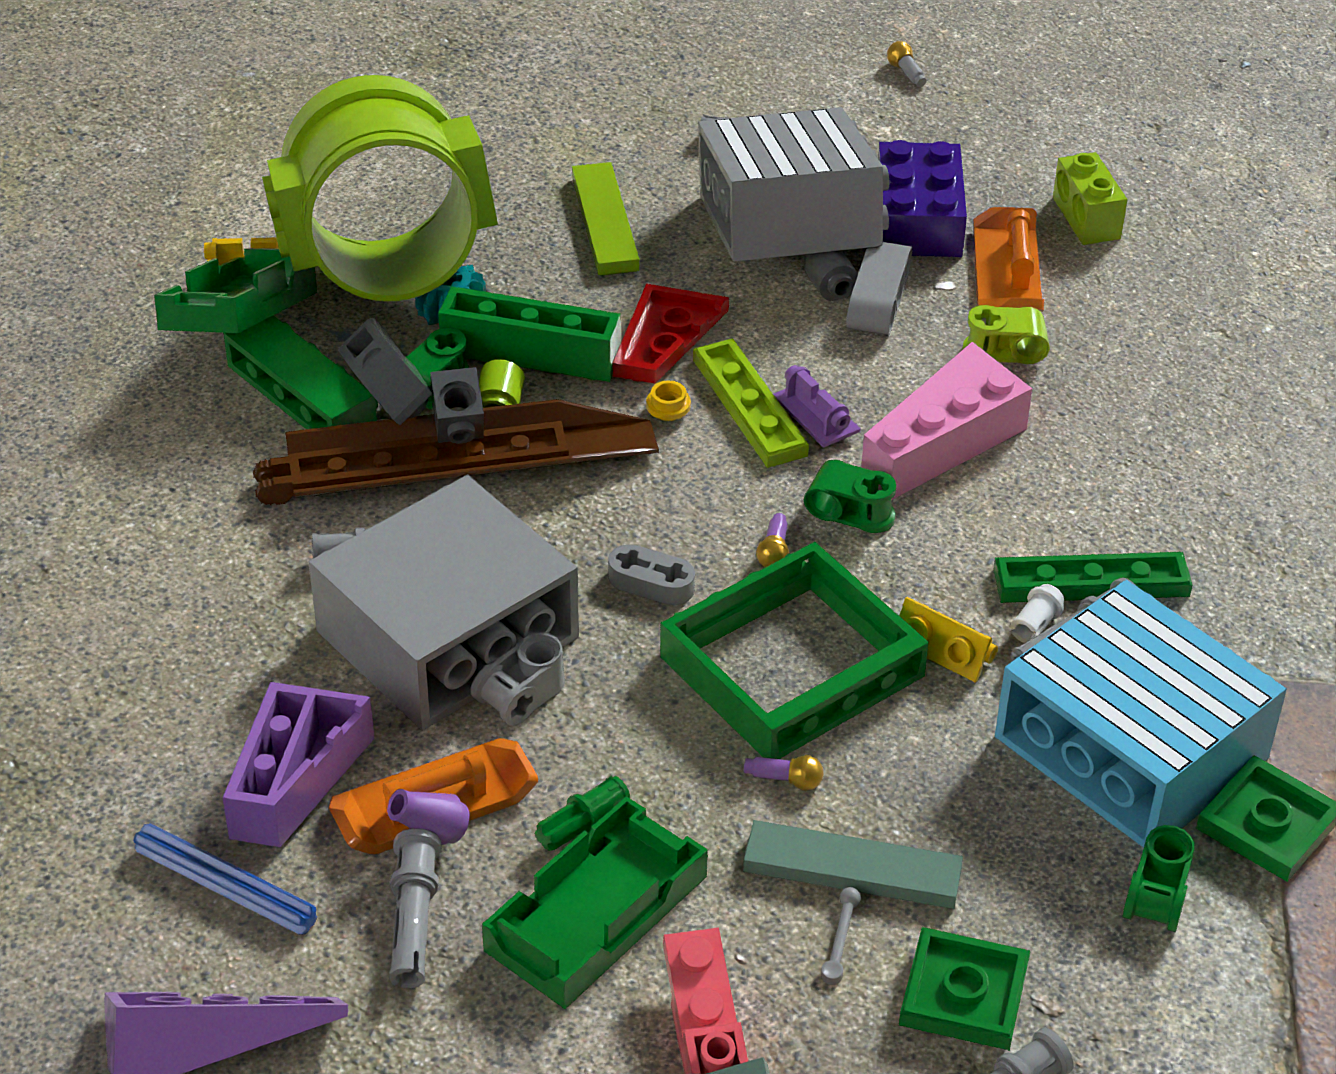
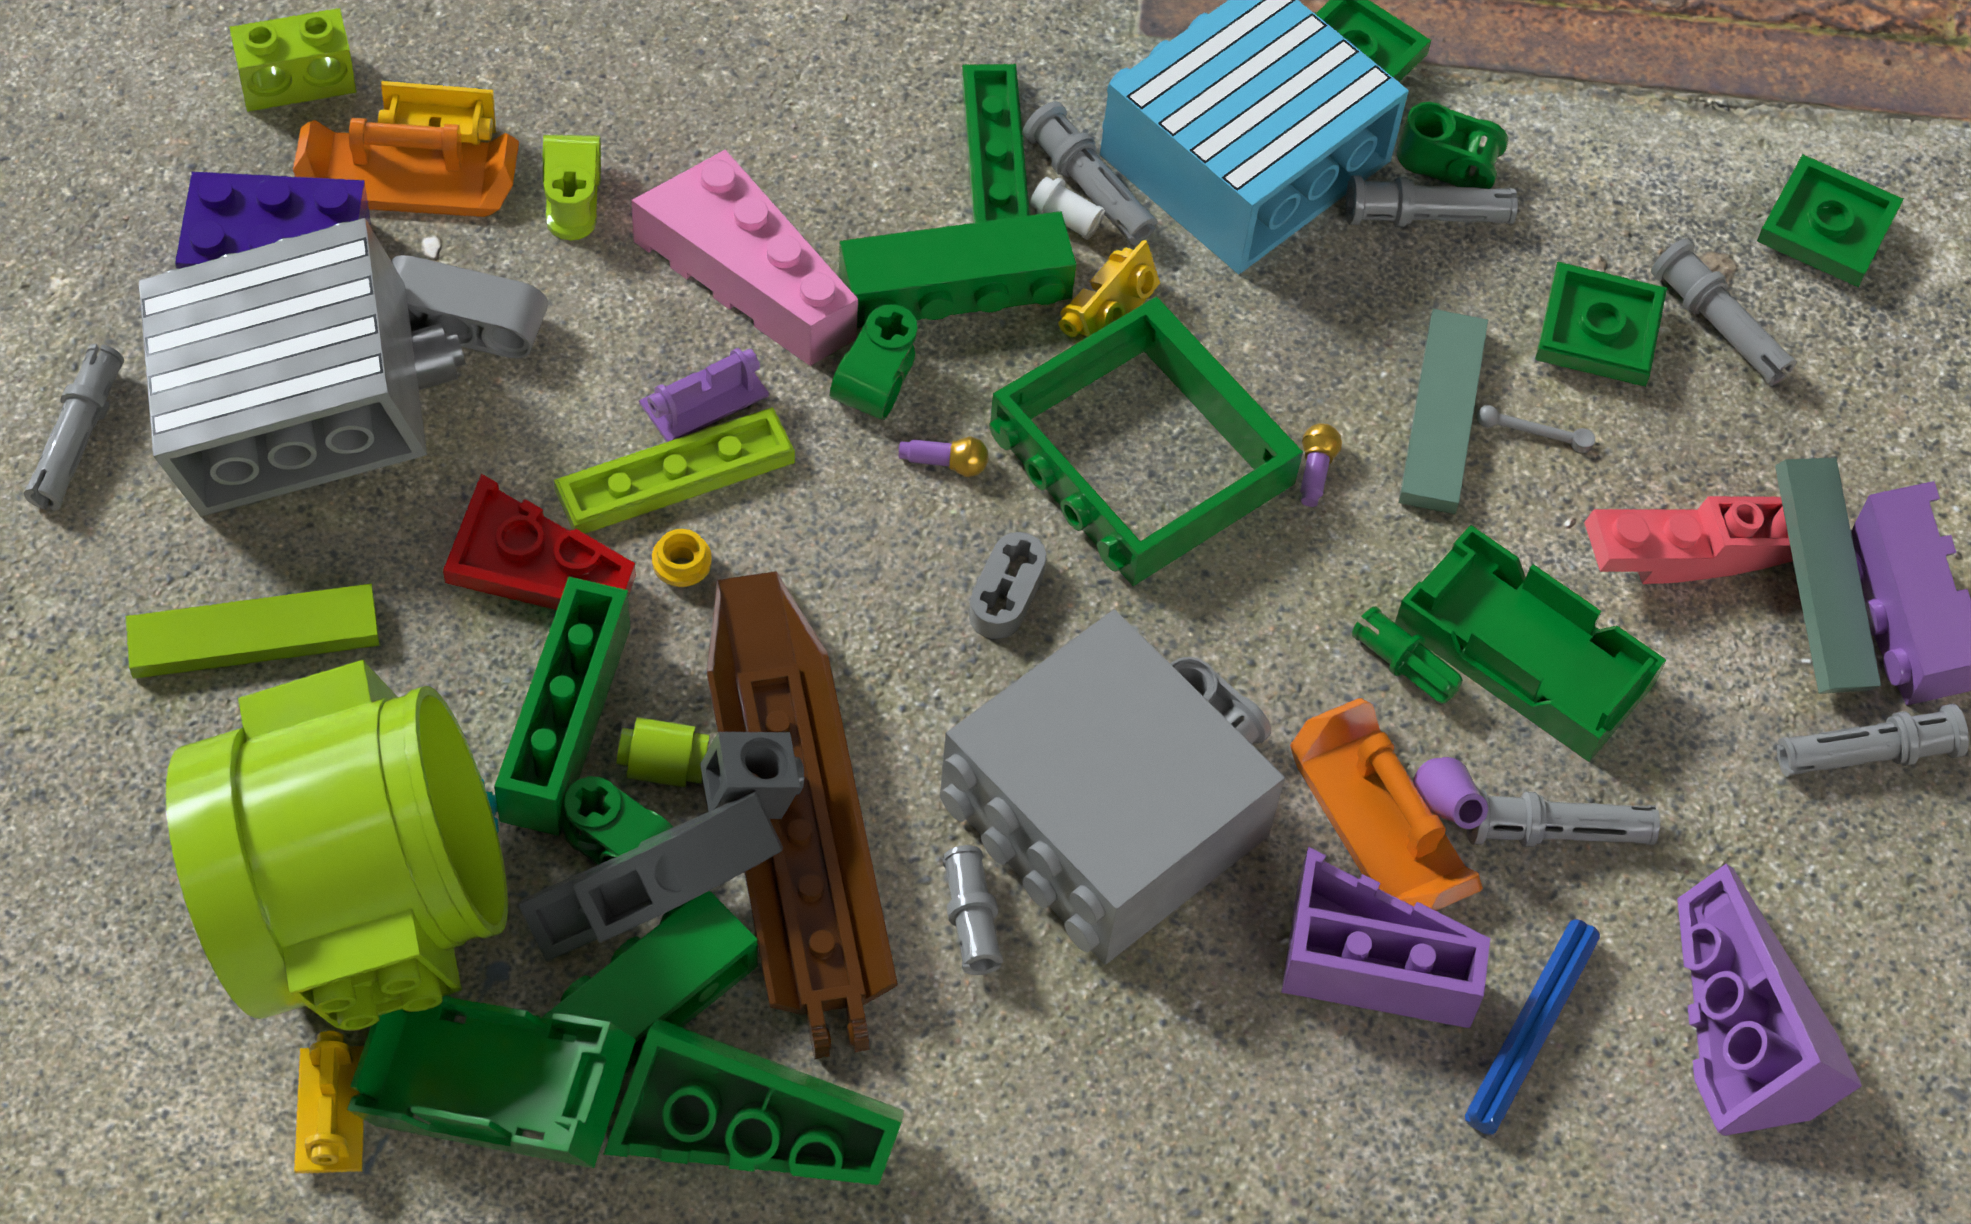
camera: 95 degrees left, 15 degrees up
(202, 421) = (747, 1113): none -> green wedge
(953, 542) = (961, 267): none -> green brick
(1053, 268) = (438, 106): none -> yellow hinge
(1087, 843) = (1406, 202): none -> light grey pin

